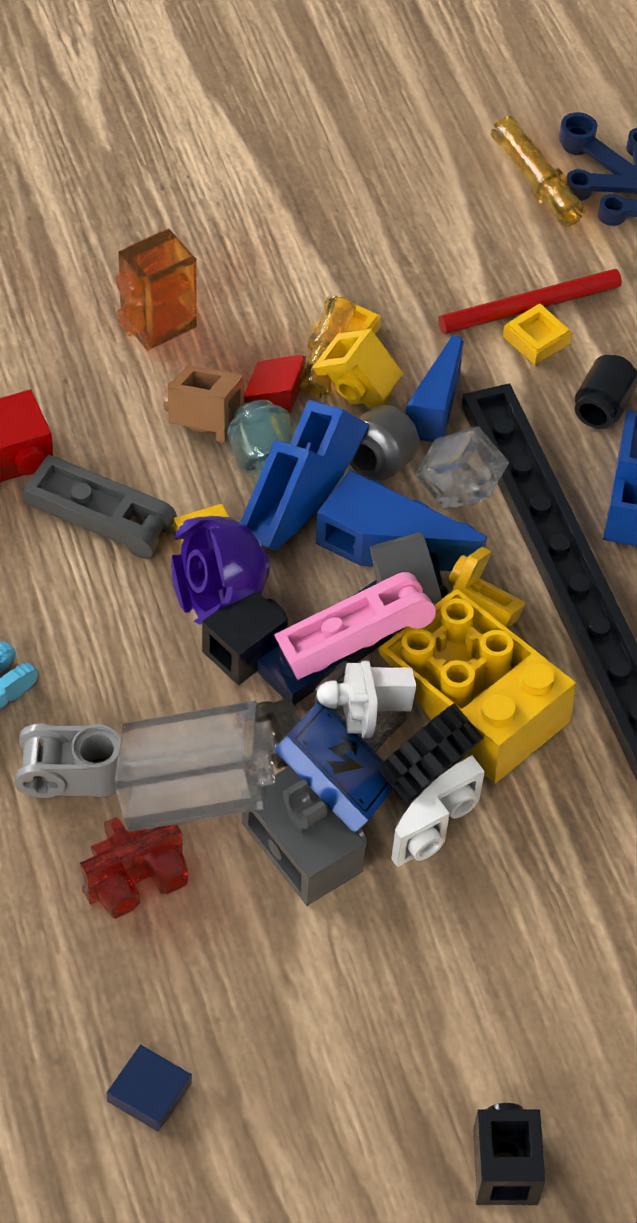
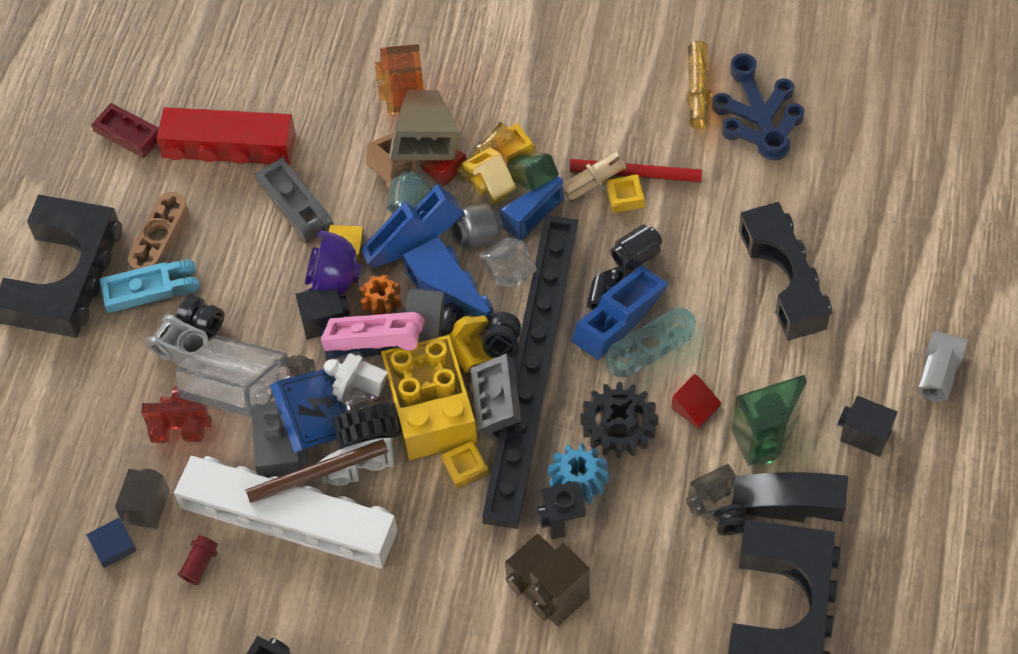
camera: 35 degrees right, 5 degrees up
(86, 705) = (200, 315): none -> black wheel
(161, 999) = (142, 498): none -> clear smoke brick
(234, 339) = (424, 128): none -> dark tan slope
(300, 1050) = (198, 559): none -> dark red pin
(313, 581) = (380, 295): none -> orange gear
(383, 923) = (293, 515): none -> white brick
(404, 844) = (316, 471): none -> reddish brown bar
(418, 338) = (532, 170): none -> clear green slope
(490, 322) = (593, 176): none -> tan axle
(518, 566) = (501, 335): none -> black wheel
(572, 640) = (495, 396): none -> flat silver bracket
(576, 755) = (464, 464): none -> yellow tile
(594, 454) = (603, 283): none -> black arm

